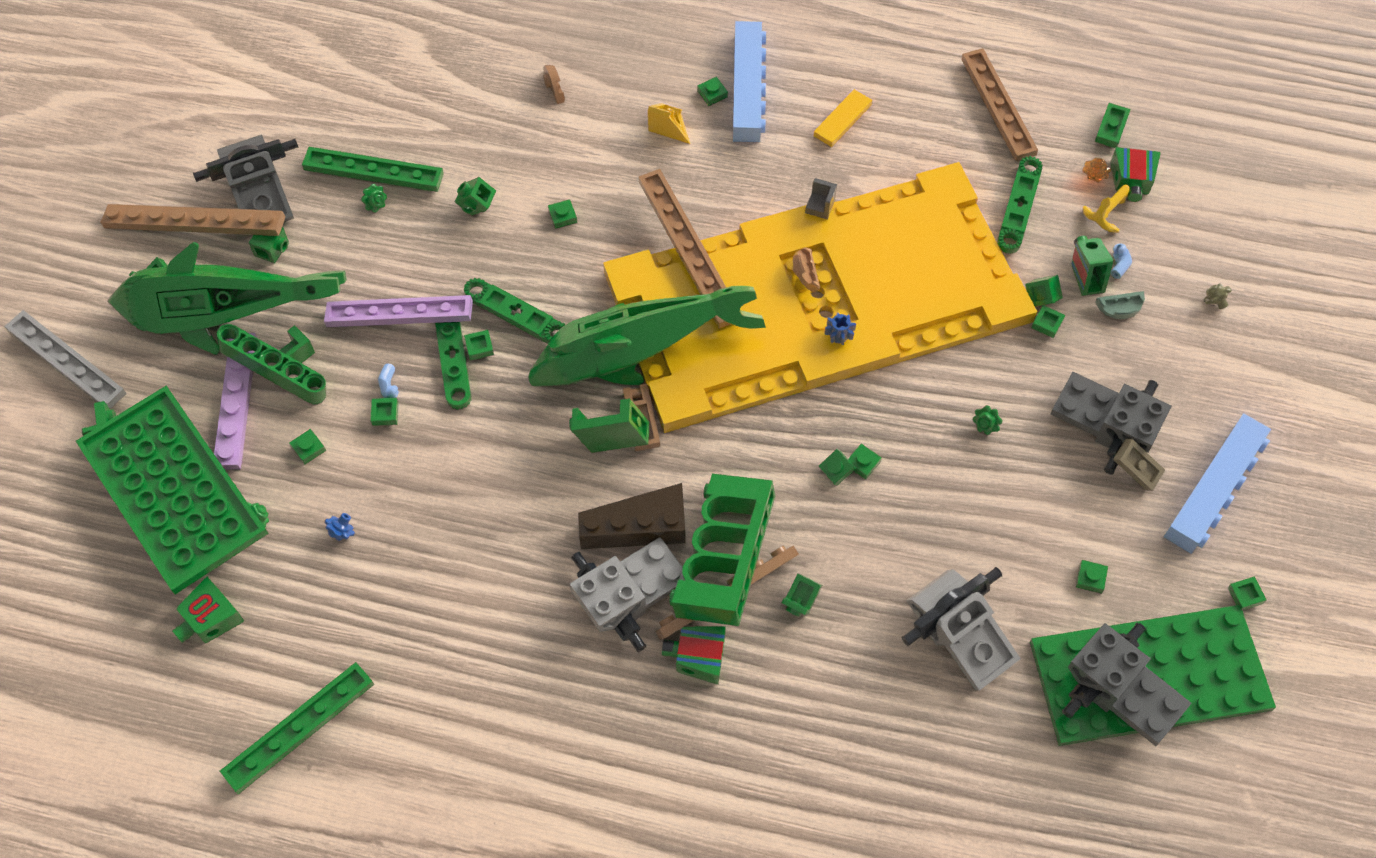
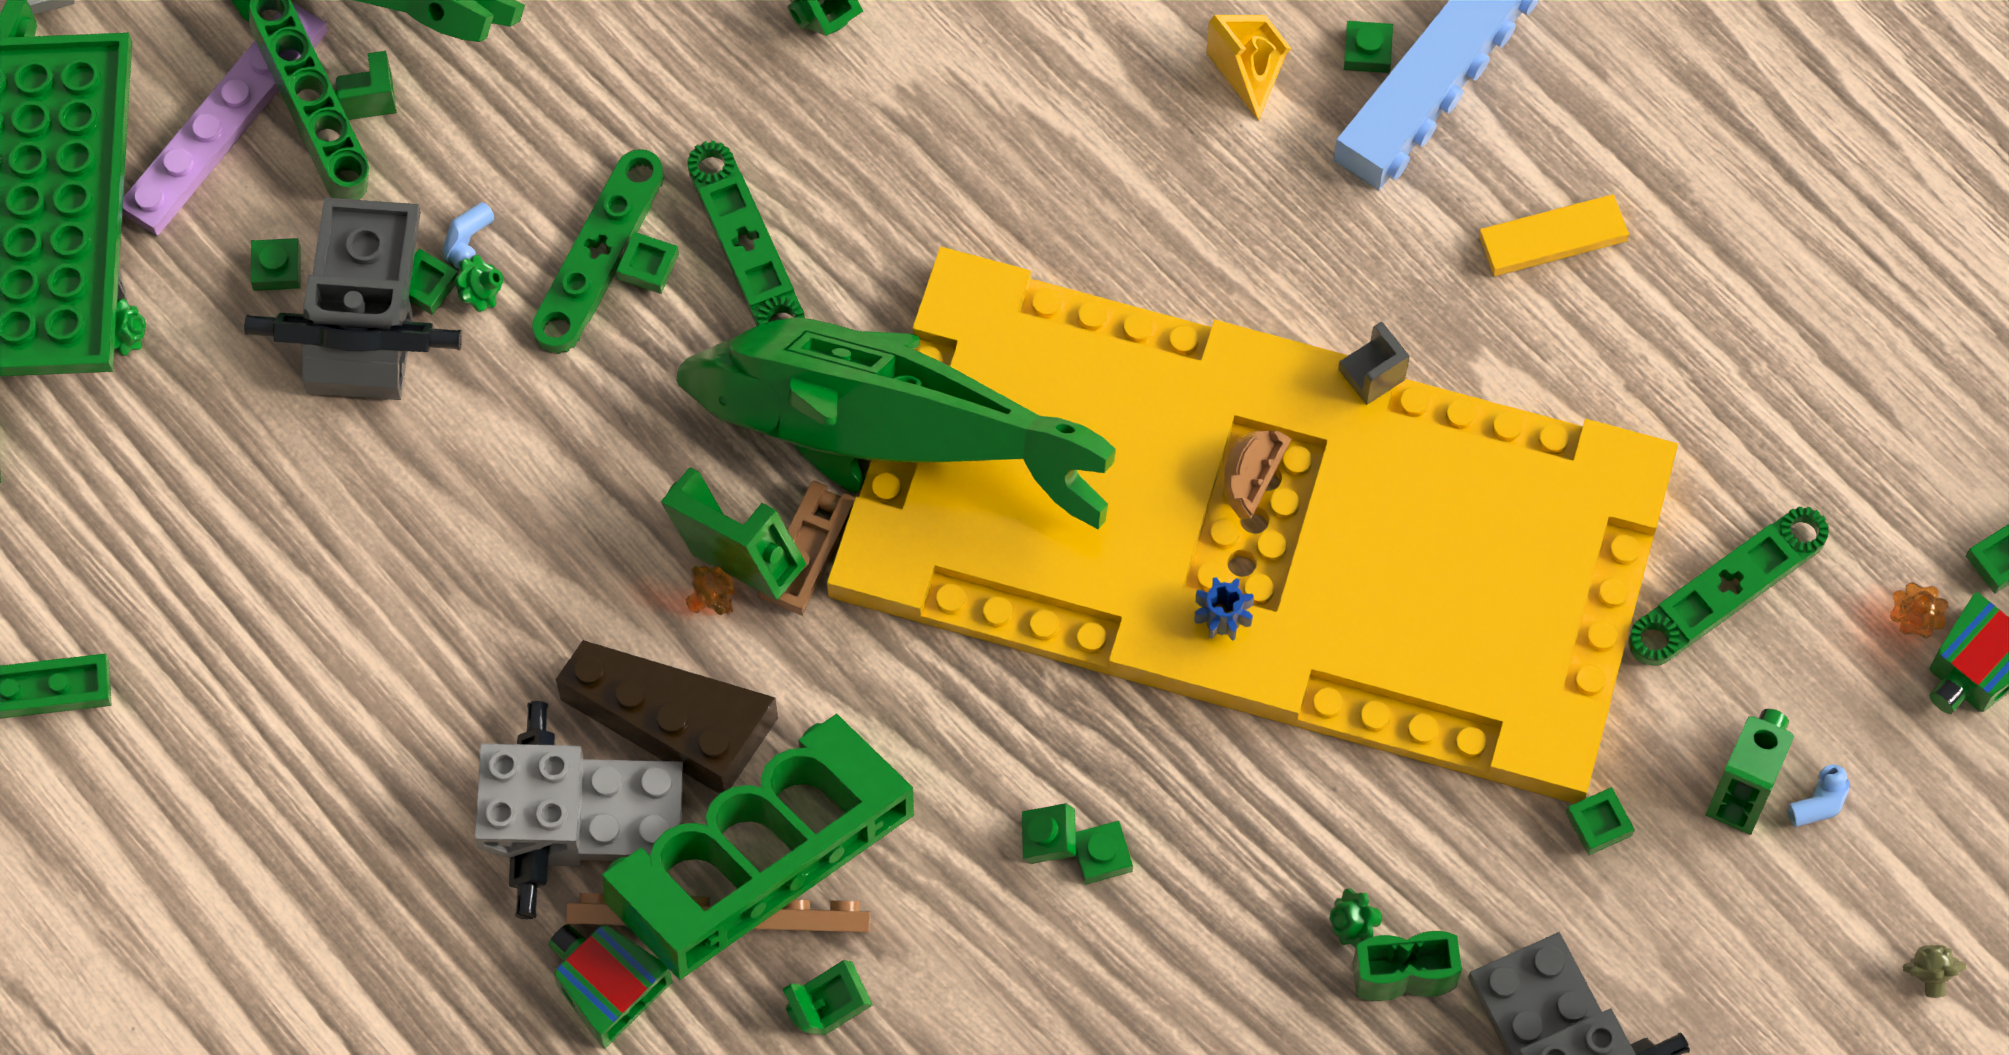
camera: 35 degrees right, 5 degrees up
(339, 527) = (229, 427): blue plant -> none
(364, 436) = (358, 303): none -> dark grey piece
(398, 311) = (563, 126): lavender plate -> none
(409, 397) = (478, 283): none -> green plant
(562, 214) = (948, 116): green plate -> none
(614, 459) = (711, 590): none -> clear orange plant
(682, 235) = (1097, 280): medium nougat plate -> none
(999, 104) = (1848, 381): medium nougat plate -> none
(1026, 423) = (1392, 965): none -> green brick
(1044, 290) = (1638, 764): green panel -> none
(1105, 208) = (1857, 690): yellow piece -> none
(1122, 305) = (1753, 877): sand green plate -> none

